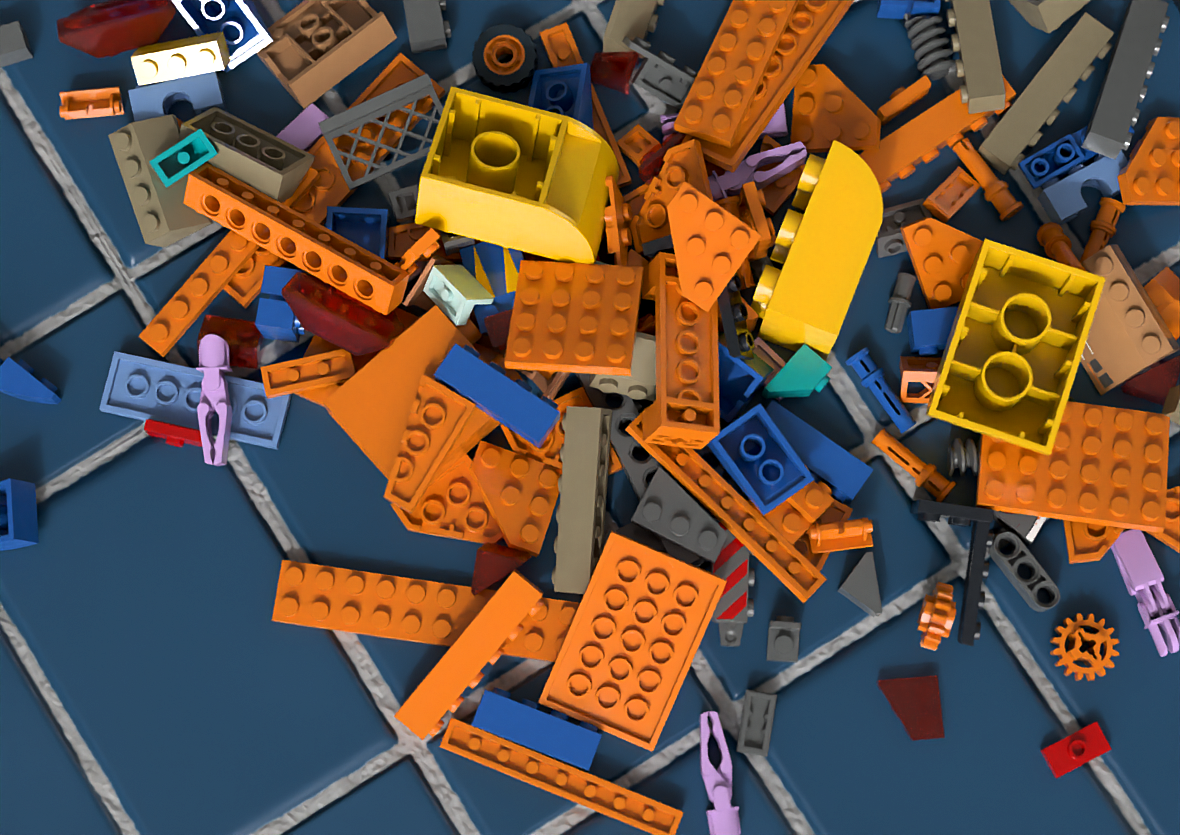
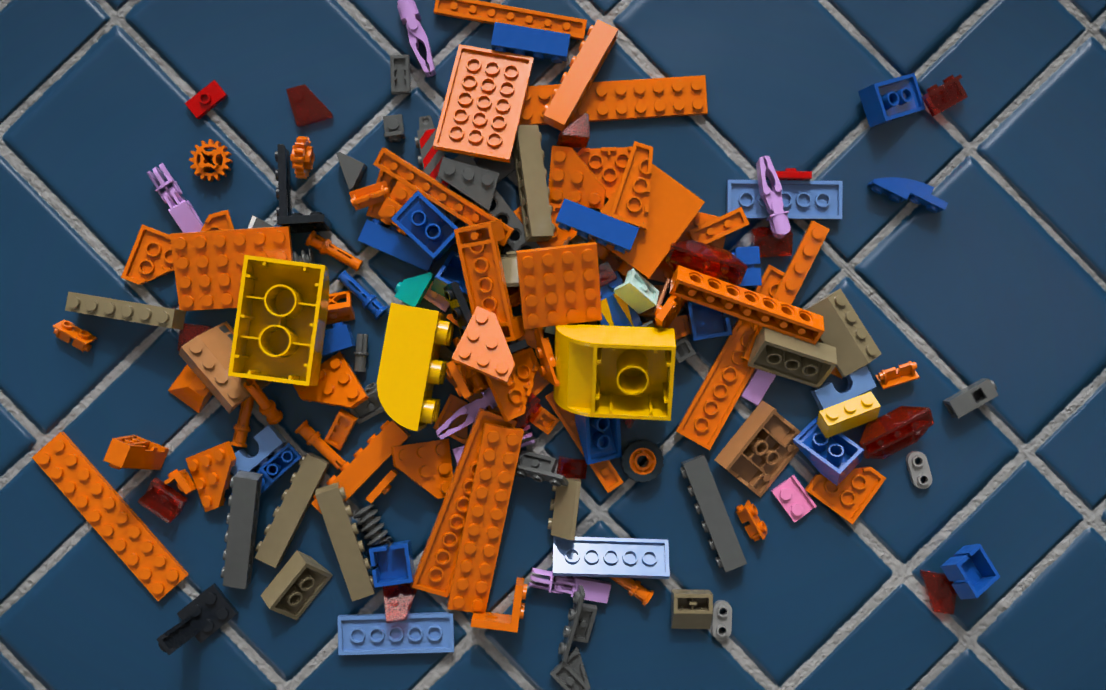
camera: 165 degrees right, 10 degrees up
(183, 158) = (831, 341): teal slope -> none
(371, 111) = (718, 403): dark grey fence -> none
(1038, 580) = (248, 192): dark grey beam -> none

